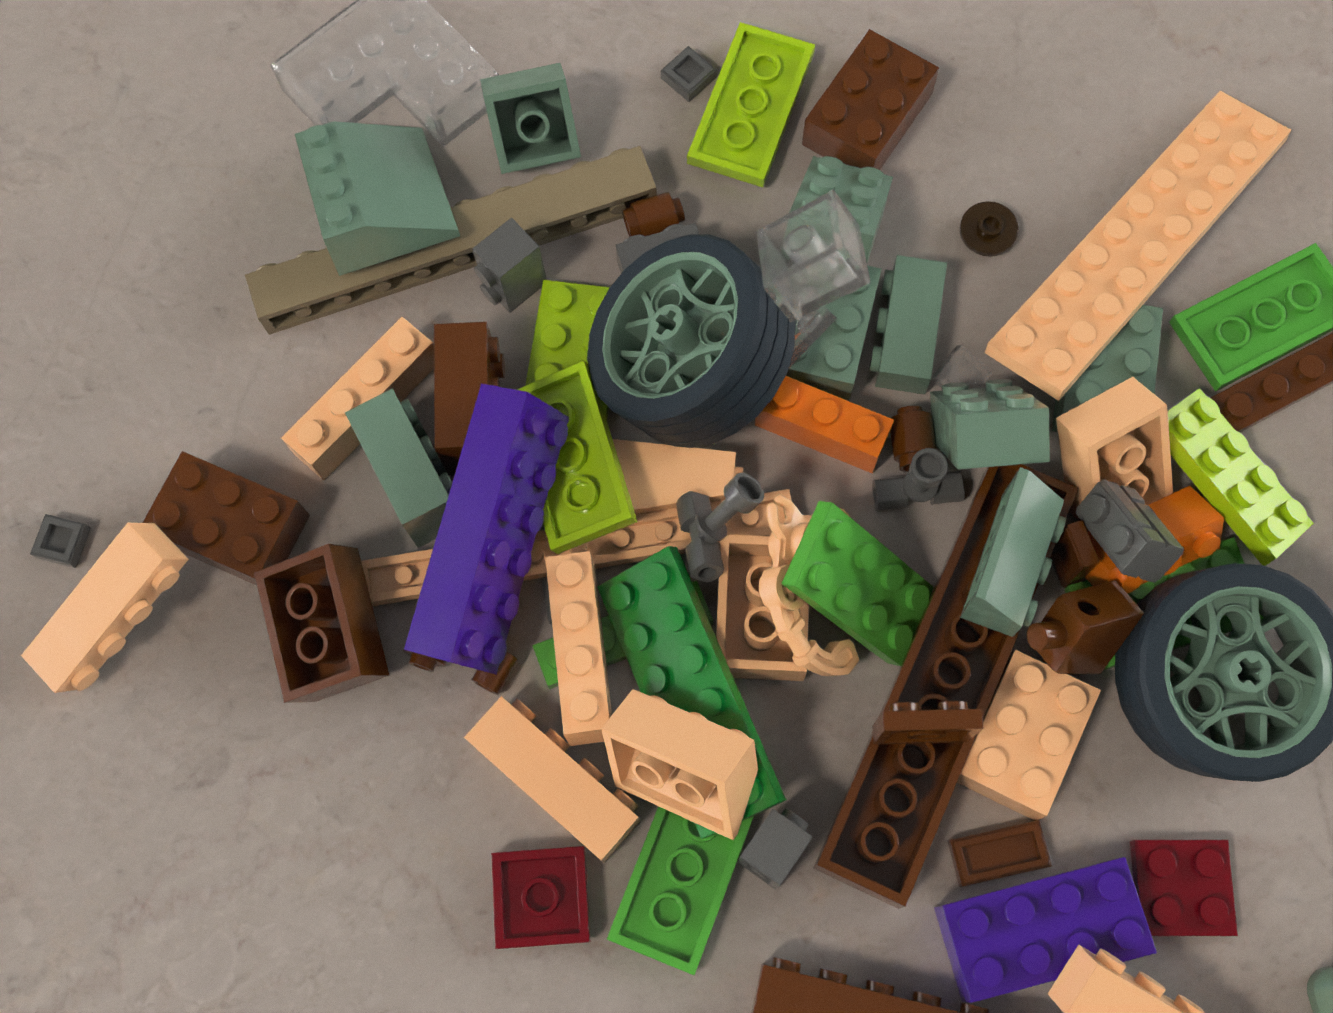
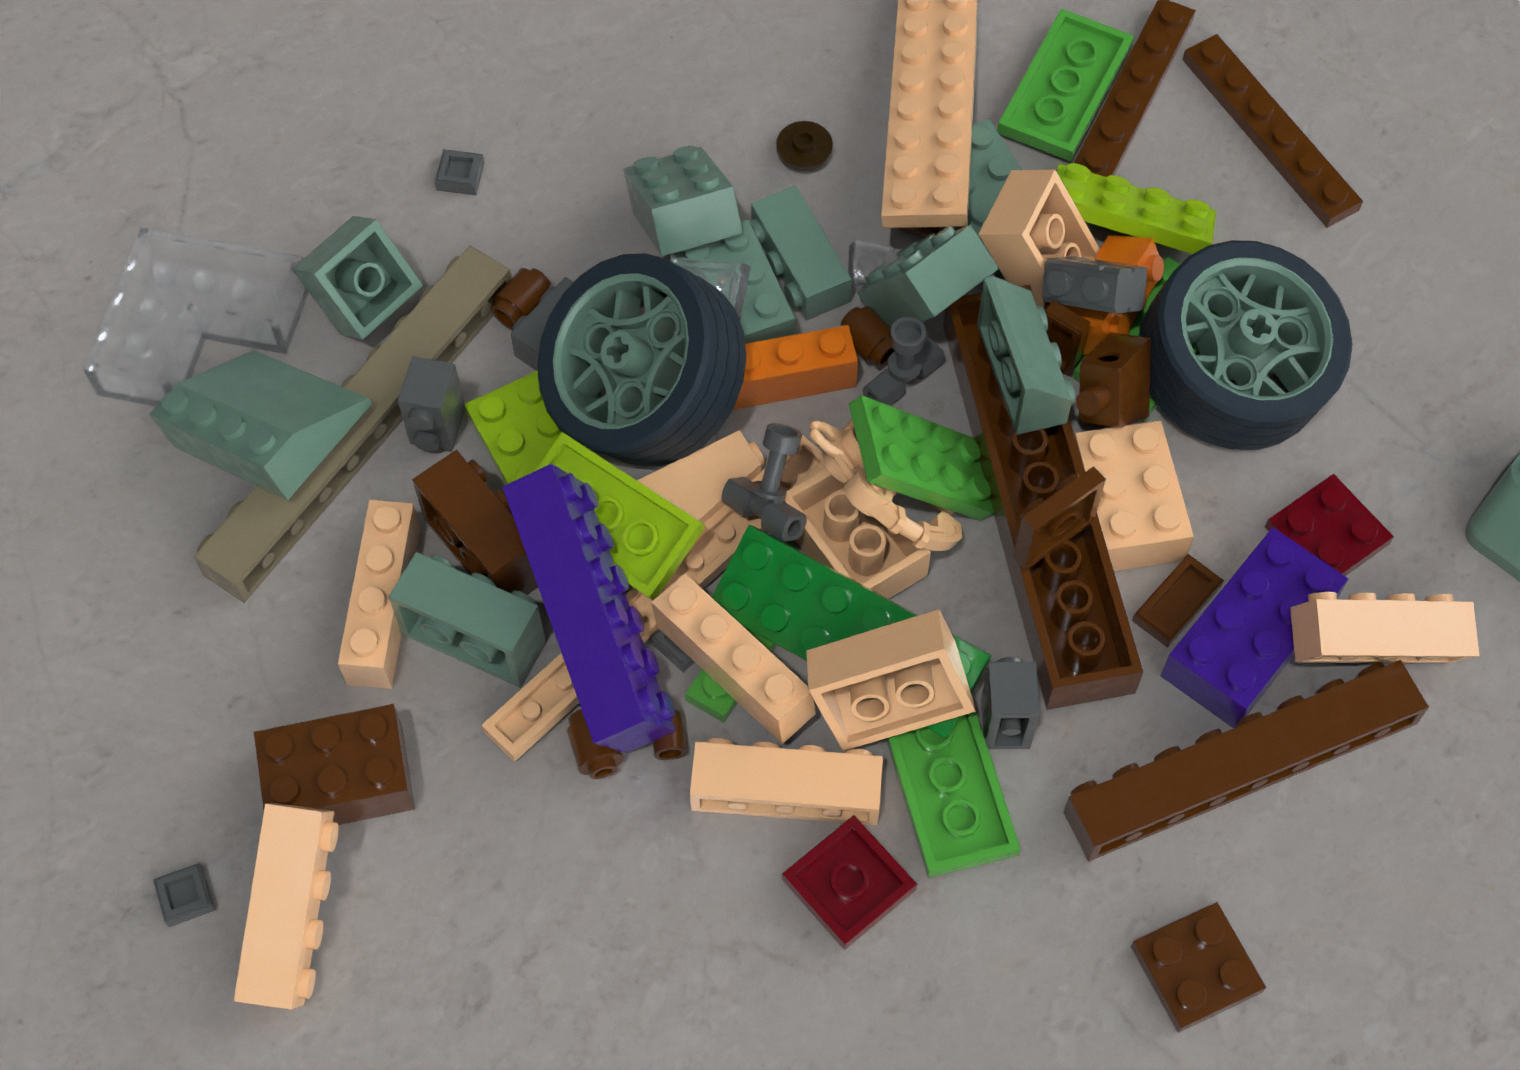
camera: 40 degrees left, 10 degrees down
(321, 623) = (493, 788): reddish brown brick -> none
(751, 104) = (534, 164): lime plate -> none
(812, 256) = (700, 225): clear brick -> none
(870, 103) = (634, 103): reddish brown brick -> none

